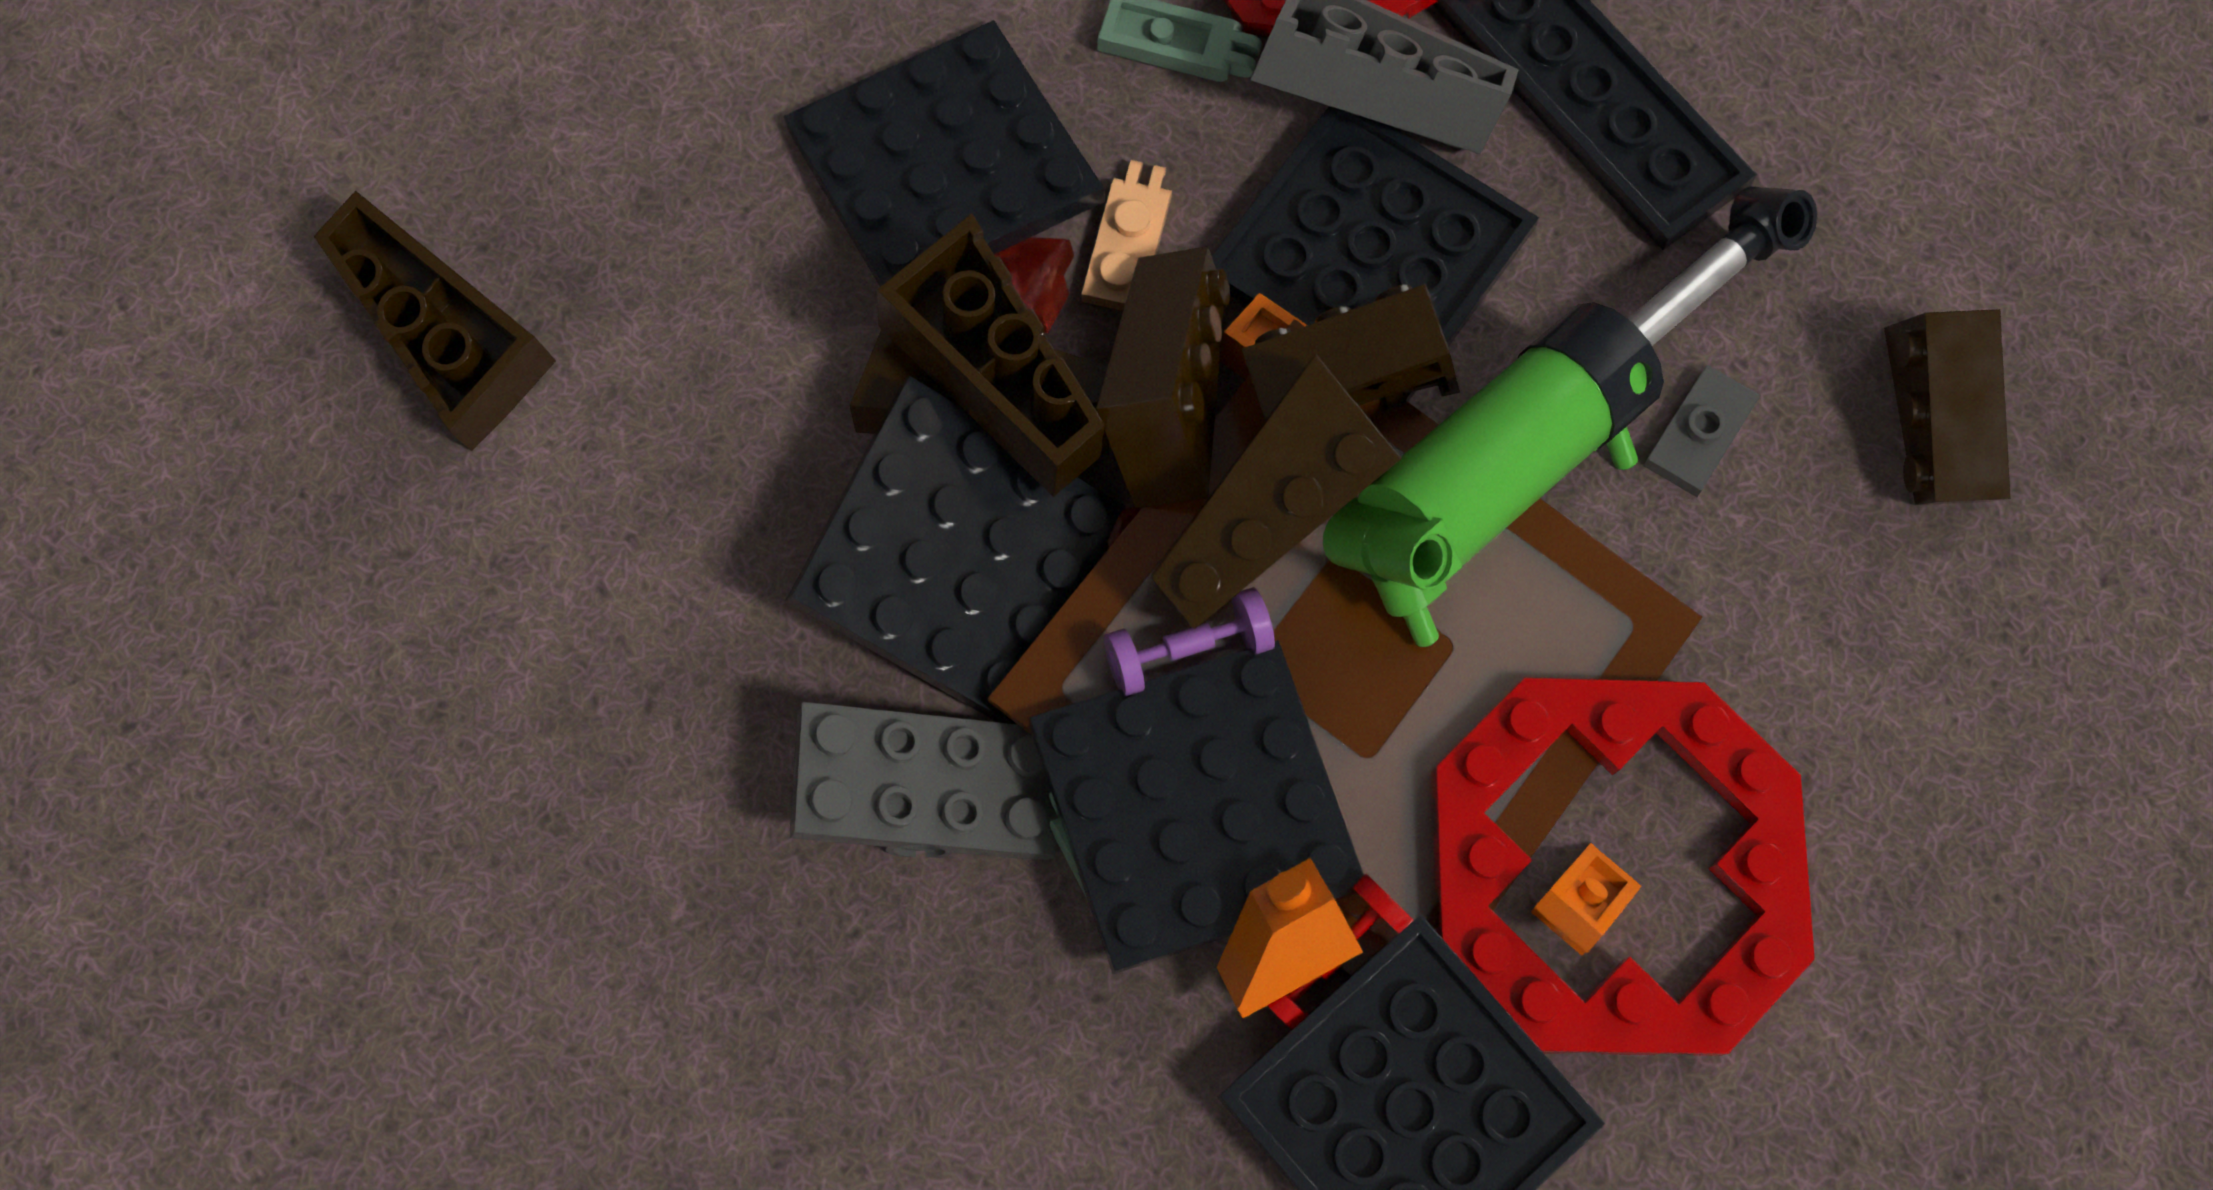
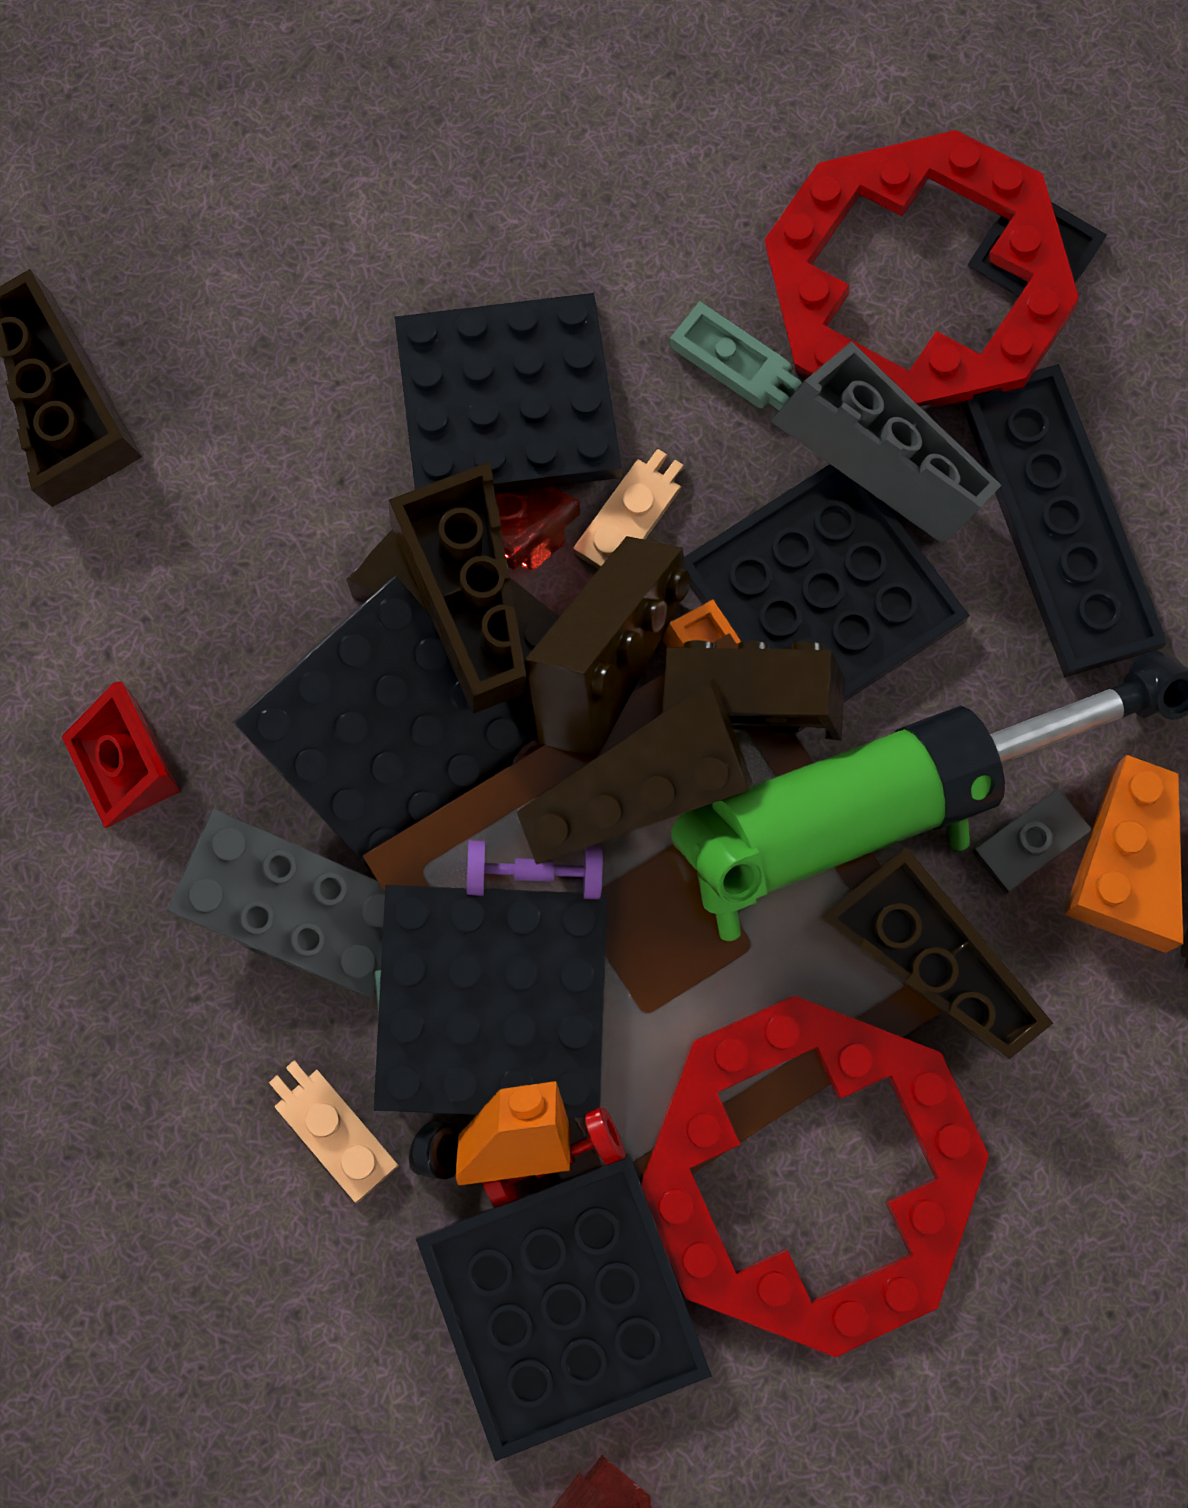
camera: 20 degrees right, 5 degrees up
(661, 693) = (119, 757): none -> red slope
(1071, 1020) = (333, 1132): none -> light nougat hinge
(1196, 996) = (435, 1150): none -> black tile
(1586, 899) = (773, 1191): orange slope -> none
(1659, 575) = (930, 947): none -> dark brown wedge
(1819, 409) = (1133, 859): none -> orange wedge

